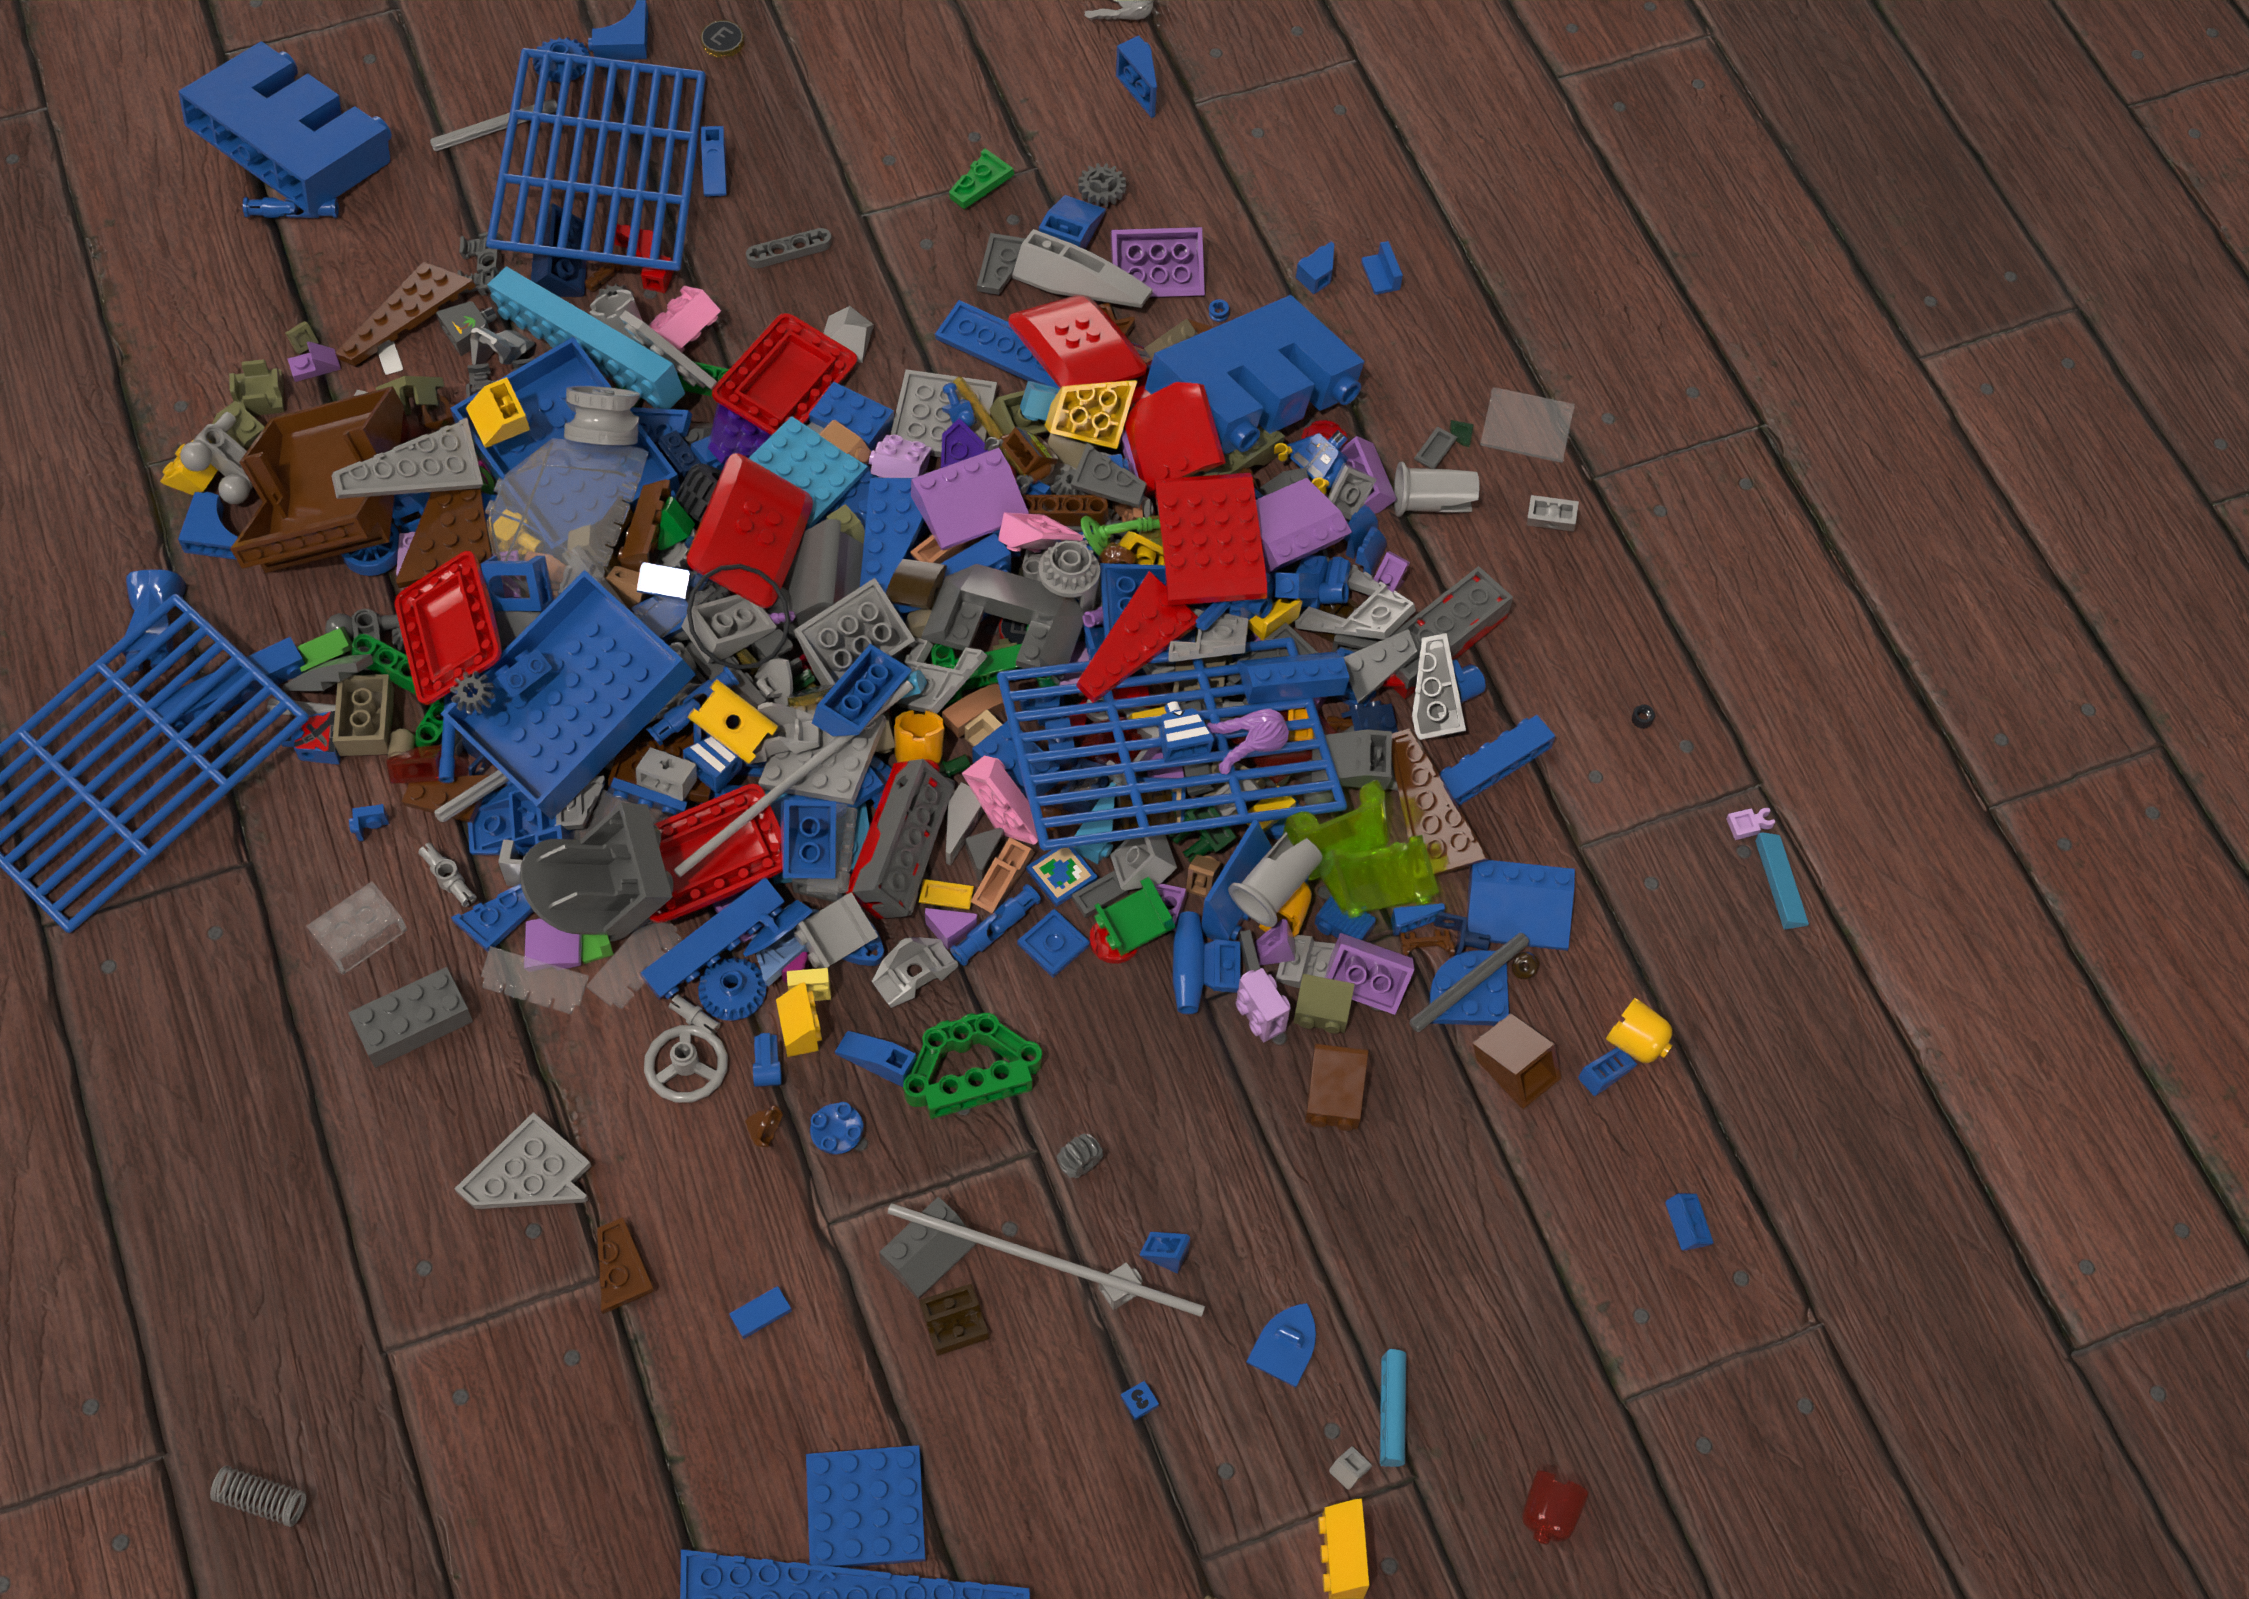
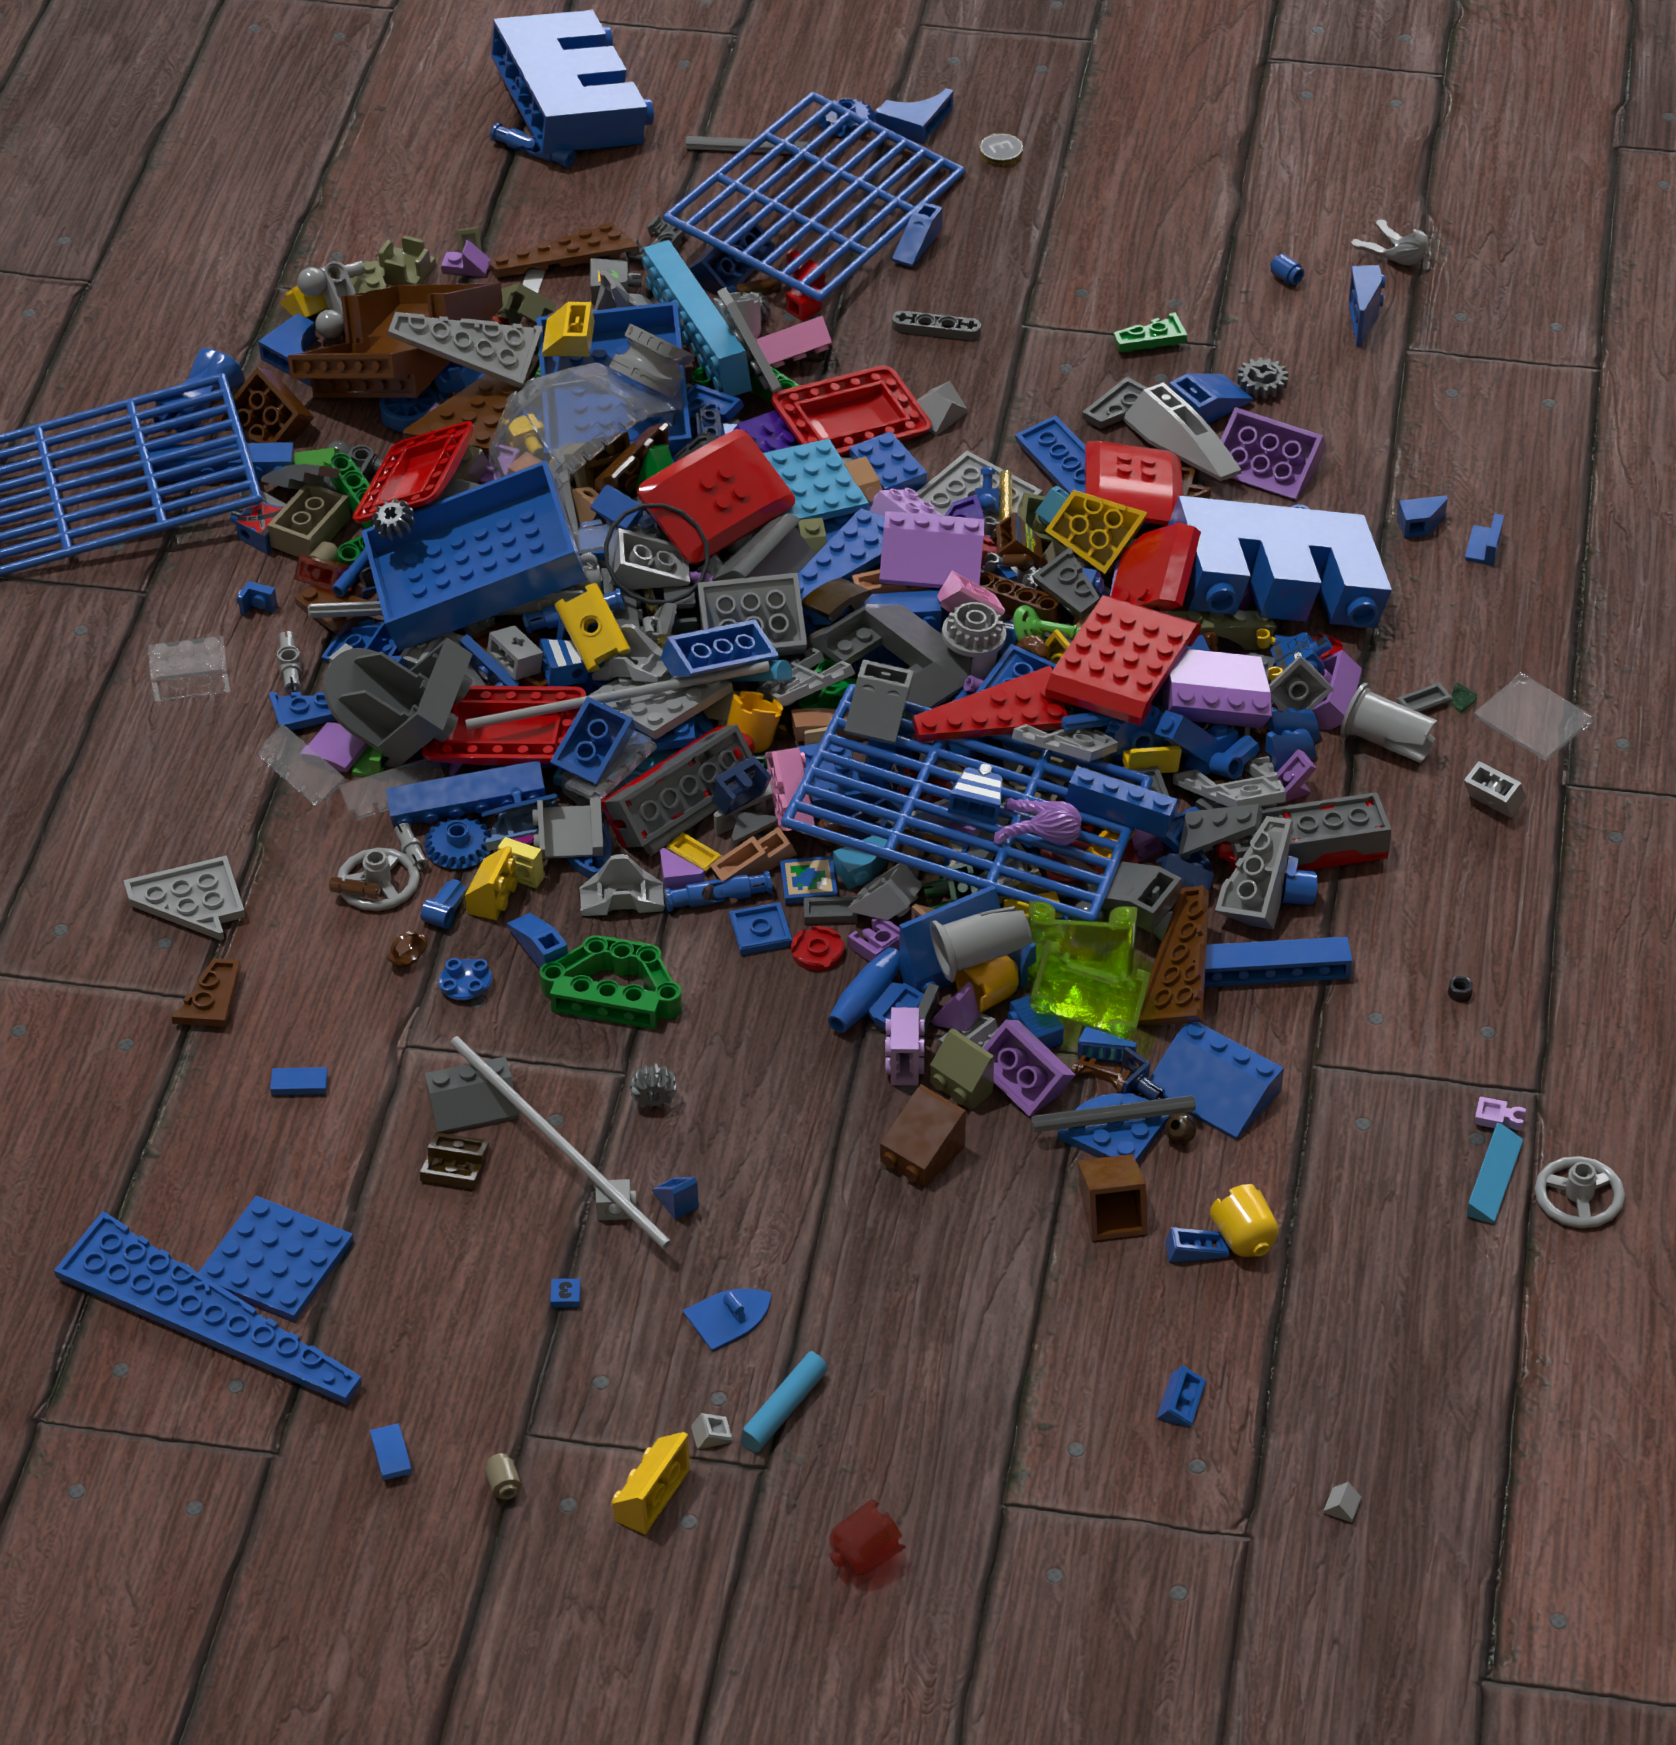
camera: 35 degrees right, 15 degrees down
(240, 610) = (269, 409): none -> reddish brown wedge
(410, 1017) = (182, 747): dark grey brick -> none
(523, 673) = (444, 521): blue bracket -> none
(537, 579) = (509, 460): blue panel -> none
(676, 1087) = (354, 887): none -> reddish brown axle
(958, 816) = (740, 785): none -> dark blue window
(1044, 684) = (879, 702): none -> dark grey slope
(1049, 65) = (1287, 269): none -> blue brick
(1135, 919) = (841, 936): green panel -> none
(1853, 862) = (1579, 1188): none -> light grey piece
(1870, 1251) = (1343, 1502): none -> light grey slope

